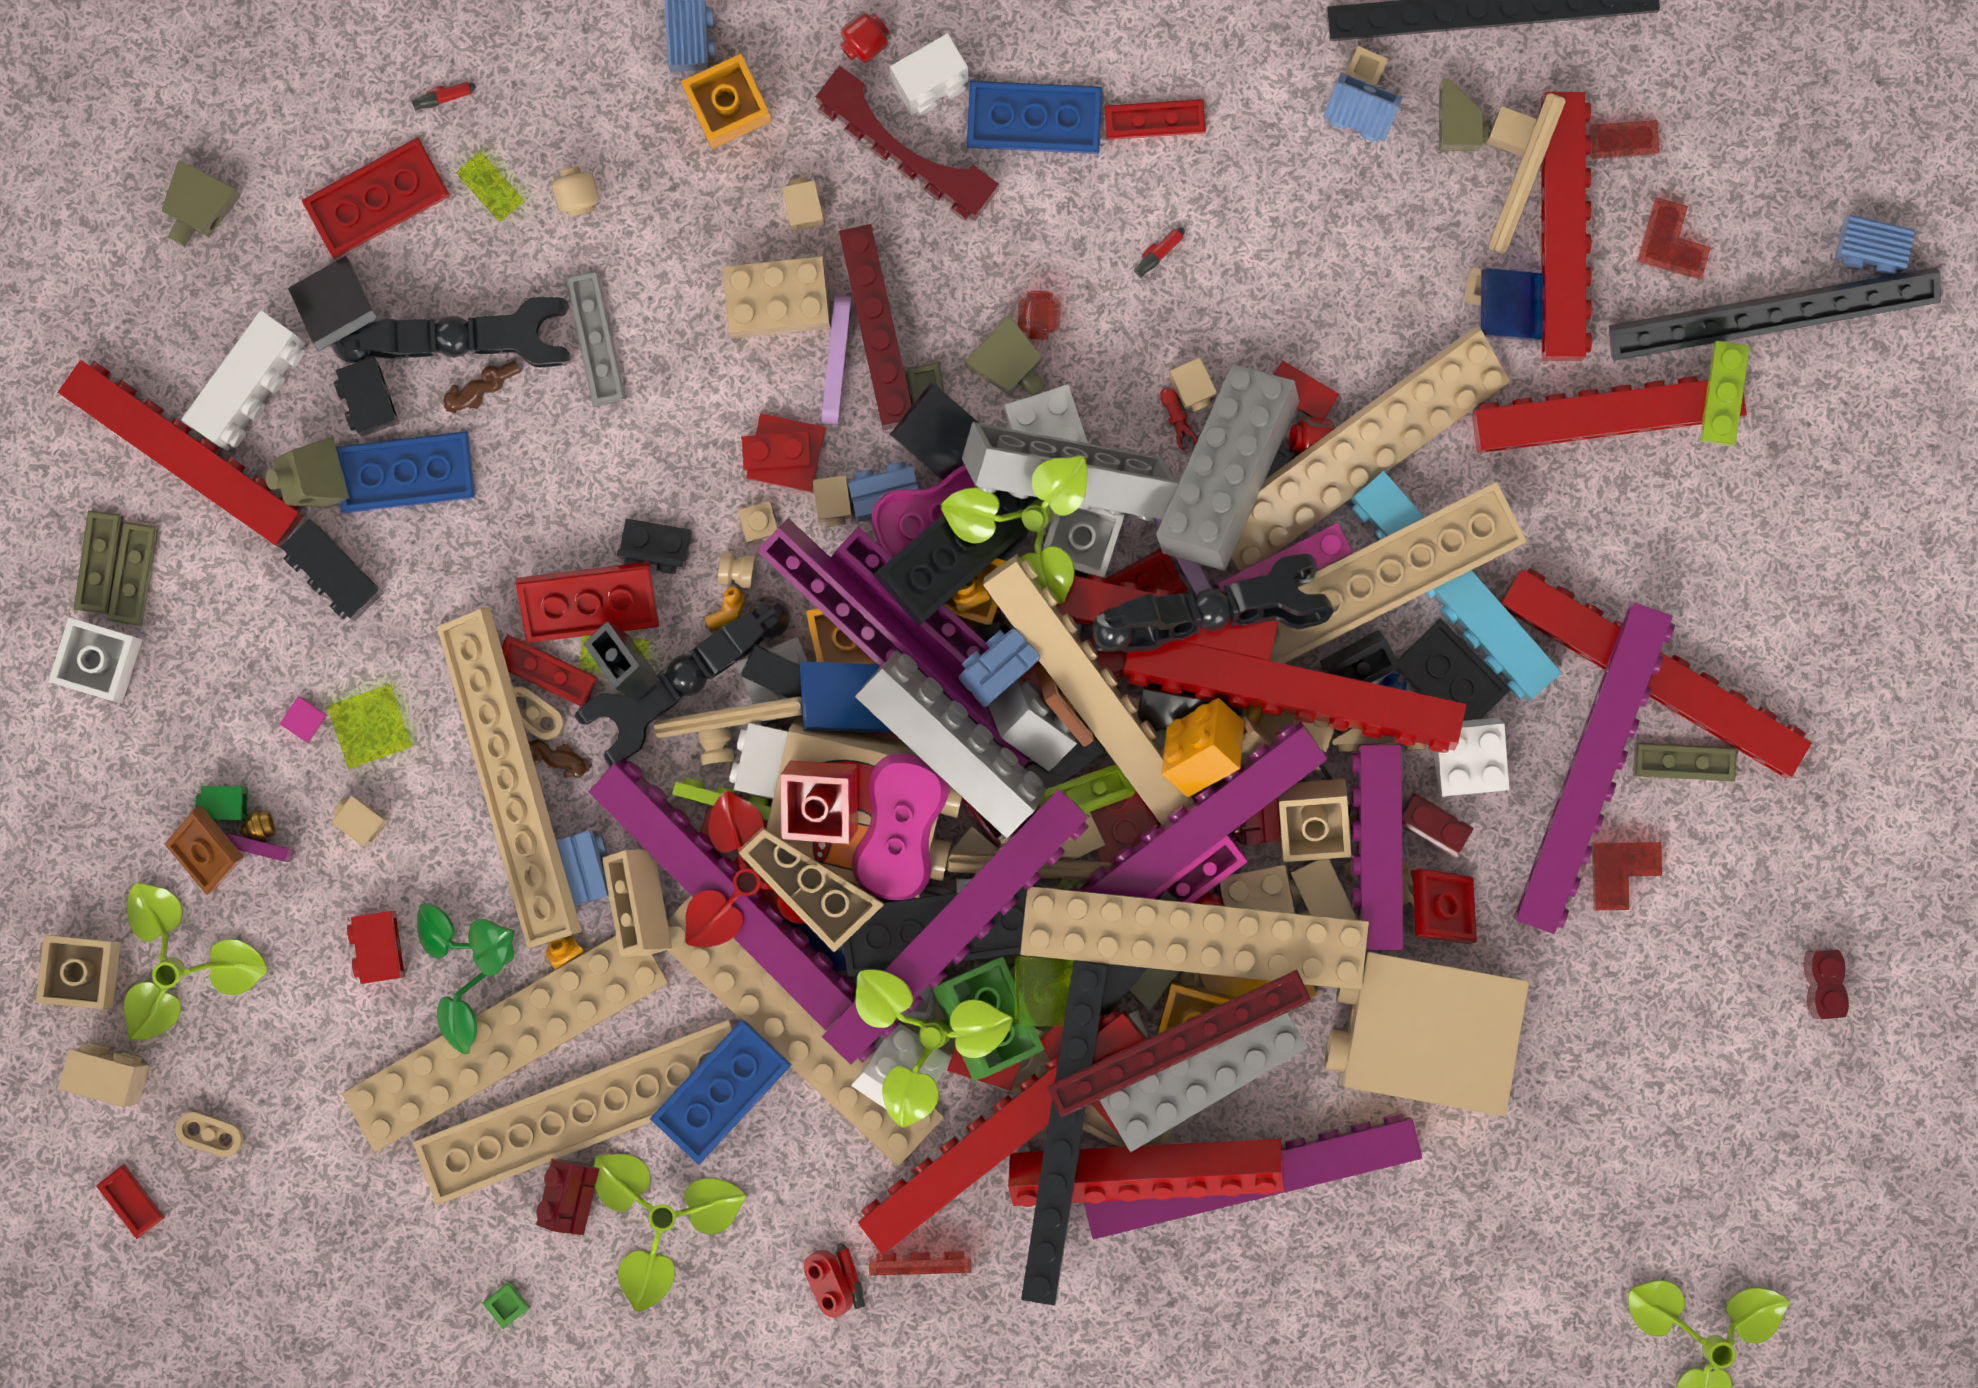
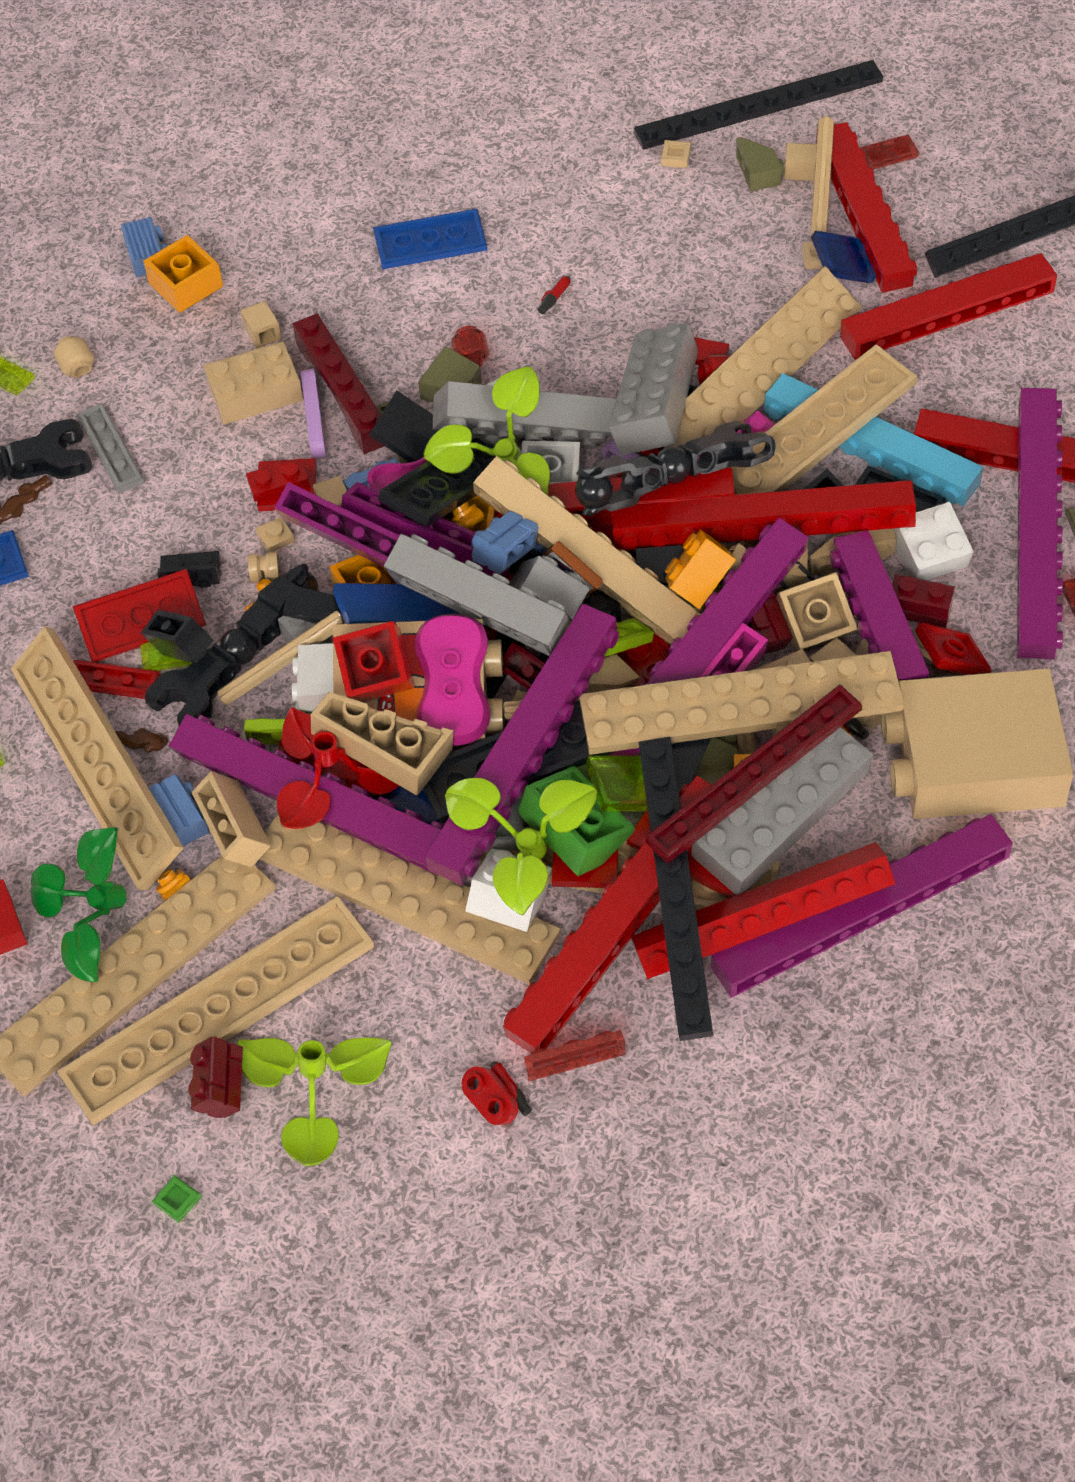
camera: 10 degrees left, 30 degrees down
(535, 712) = (114, 706): tan plate -> none
(716, 746) = (275, 692): tan wheel -> none
(720, 1091) = (344, 953): blue tile -> none
(864, 37) = (284, 217): red head -> none
(930, 75) = (339, 220): white brick -> none
(965, 189) = (385, 286): dark red arch -> none
(1155, 119) = (524, 219): red tile -> none
(1177, 417) = (603, 389): red piece -> none
(1193, 385) = (607, 361): tan brick -> none
(1362, 107) = (681, 171): medium blue brick -> none
(1662, 244) = (946, 205): clear red plate -> none
(1724, 393) = (1033, 263): lime plate -> none

